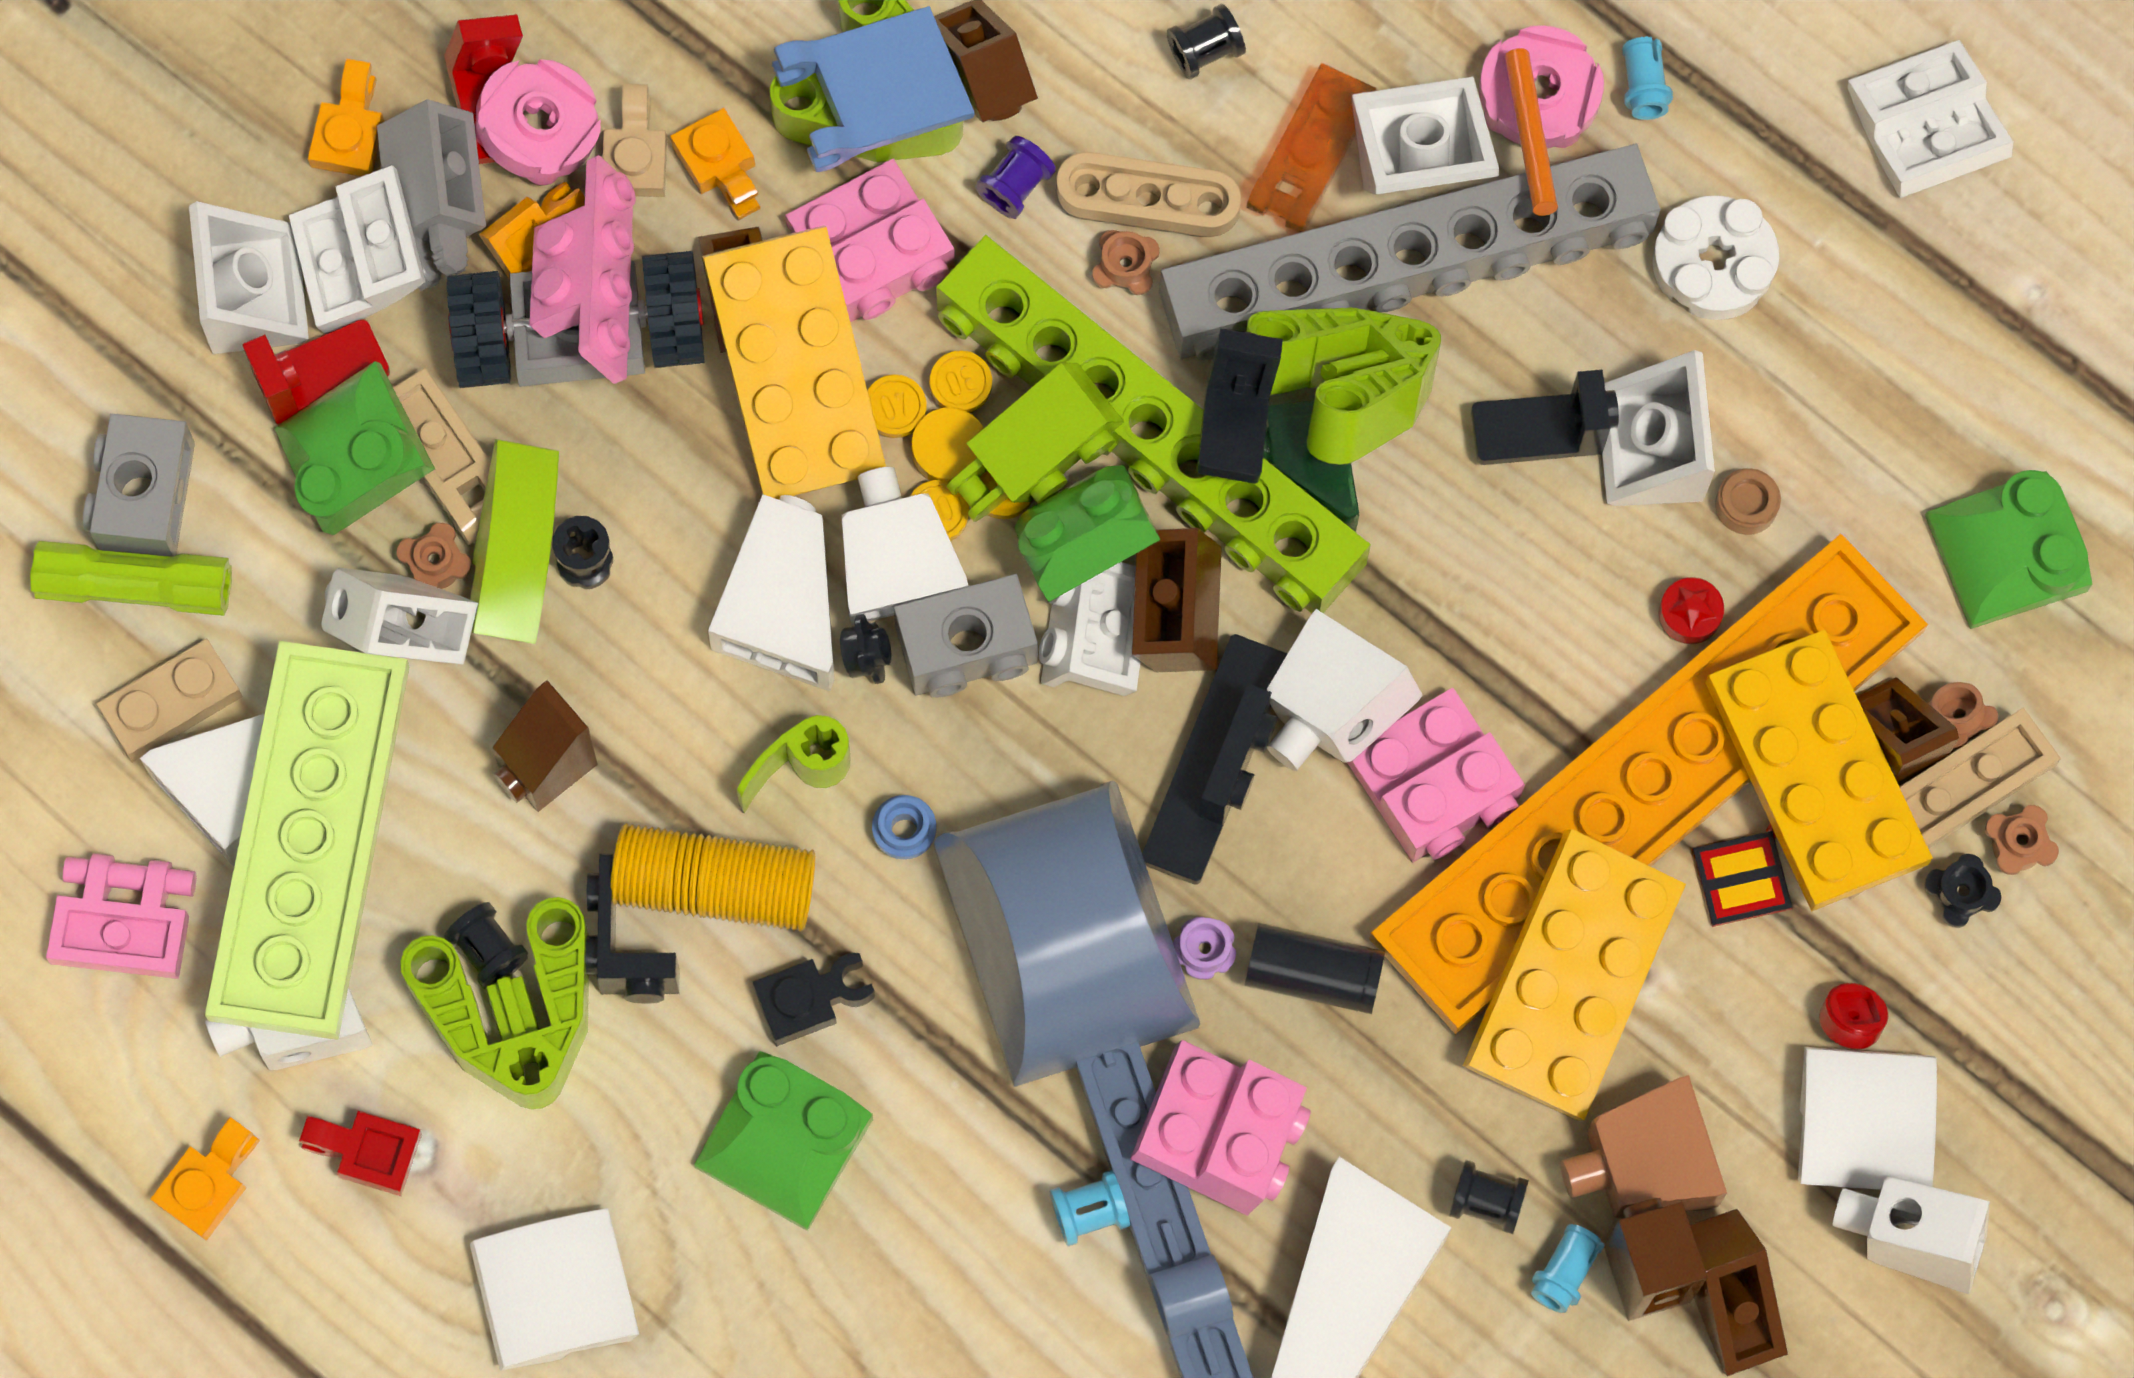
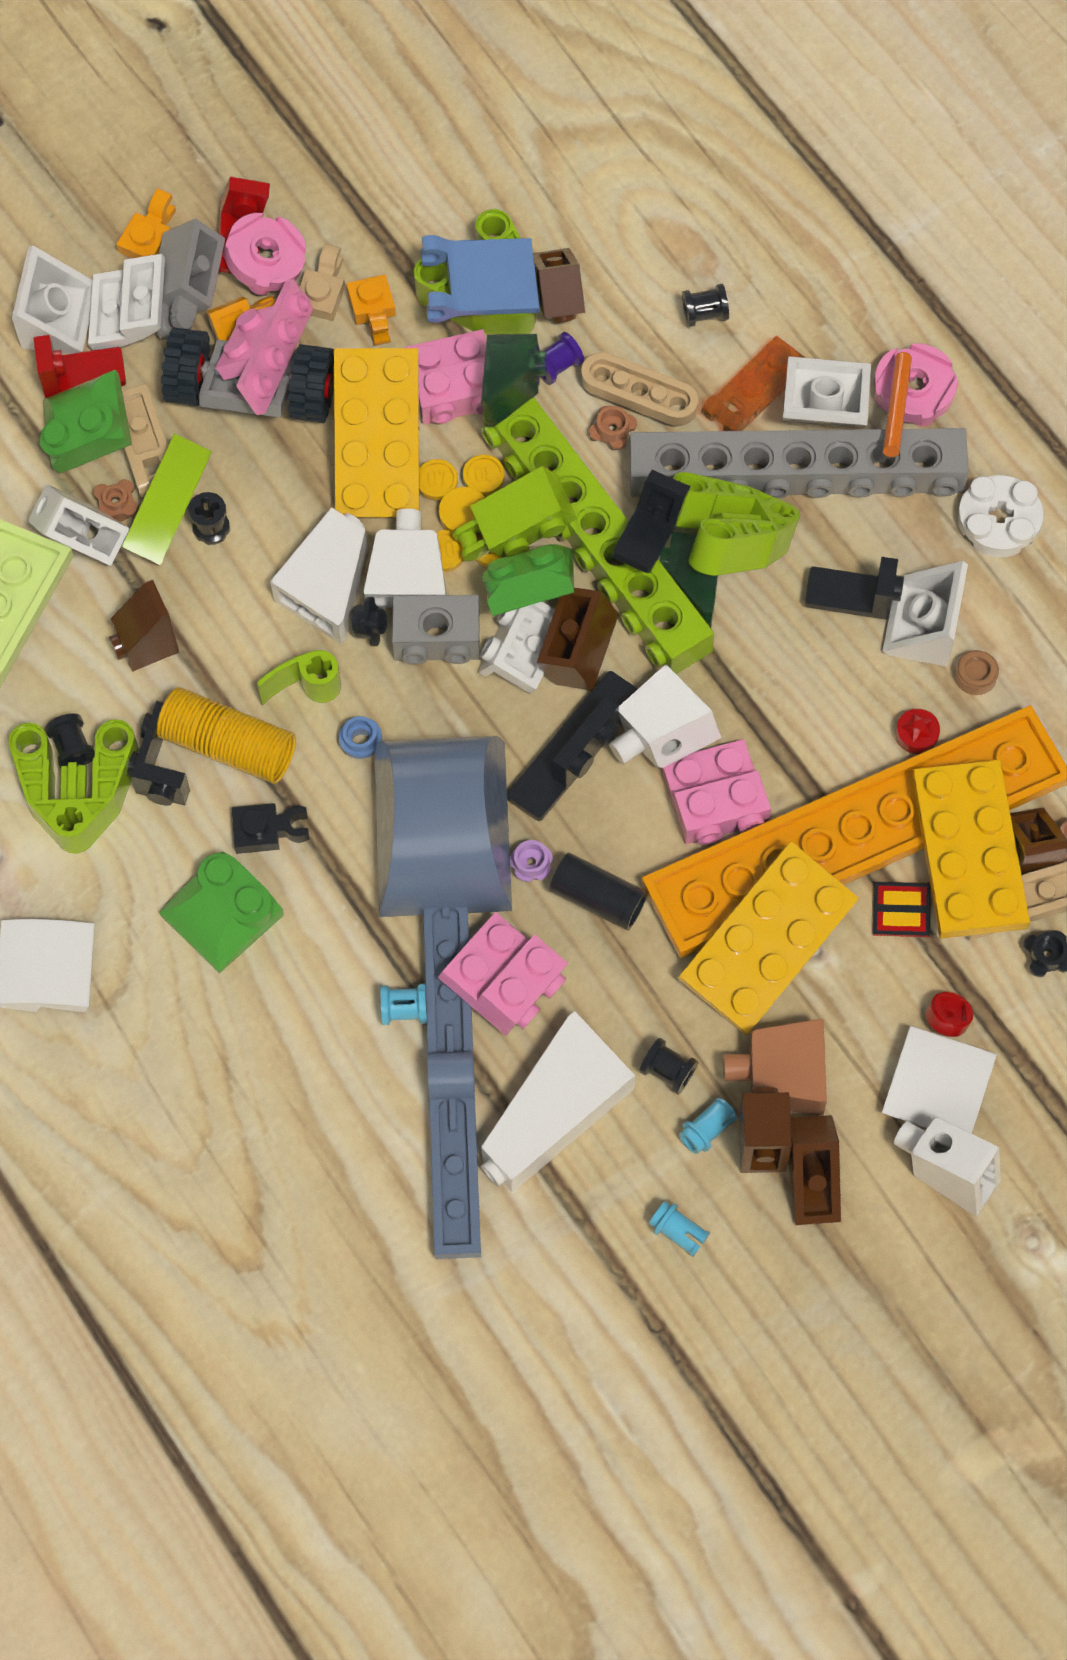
camera: 20 degrees right, 5 degrees down
(967, 226) = (510, 374): none -> clear green slope
(1647, 92) = (985, 402): medium azure pin -> none

